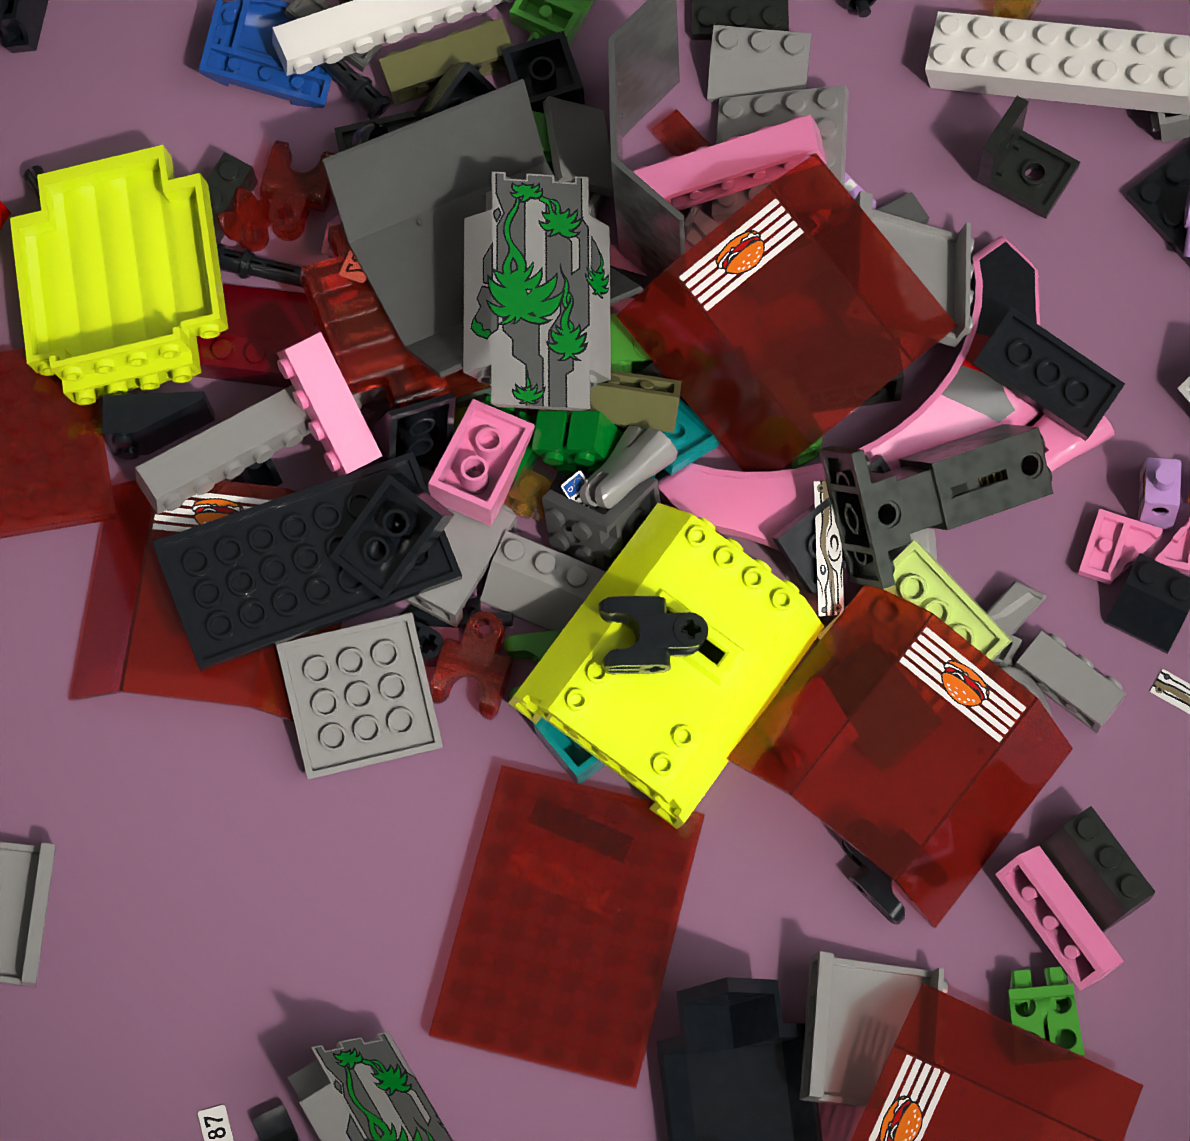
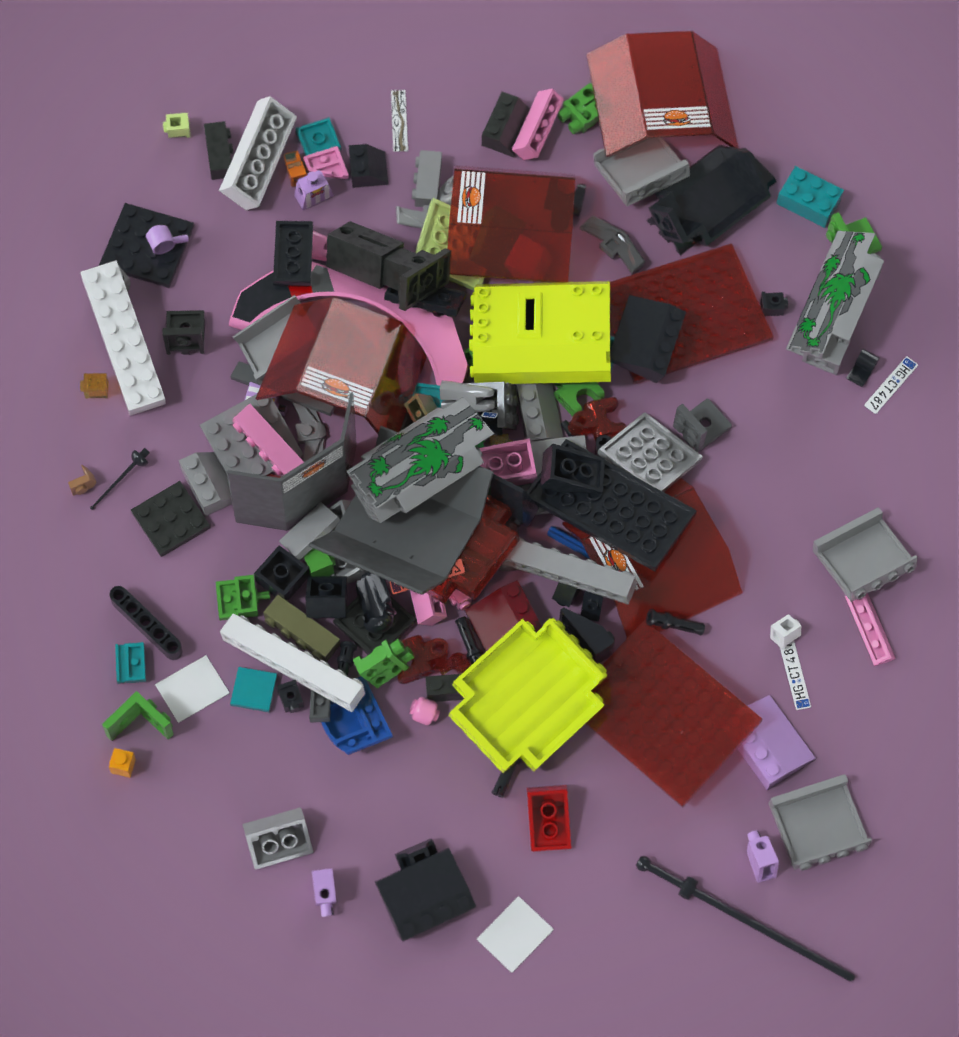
camera: 135 degrees left, 5 degrees down
(93, 544) = (667, 621): none -> black pin
(211, 144) = (424, 711): none -> bright pink head
(309, 118) = (384, 662): none -> bright green hips
(329, 404) = (531, 537): bright pink brick -> none
(359, 797) = (693, 431): none -> dark grey bracket
(500, 1072) = (770, 307): none -> black brick
(551, 816) = (646, 337): none -> black slope
(655, 632) = (543, 320): black piece -> none
(762, 900) = (614, 243): none -> dark grey plate
(828, 556) = (445, 293): sticker -> none
(1115, 546) = (351, 197): bright pink wing -> none

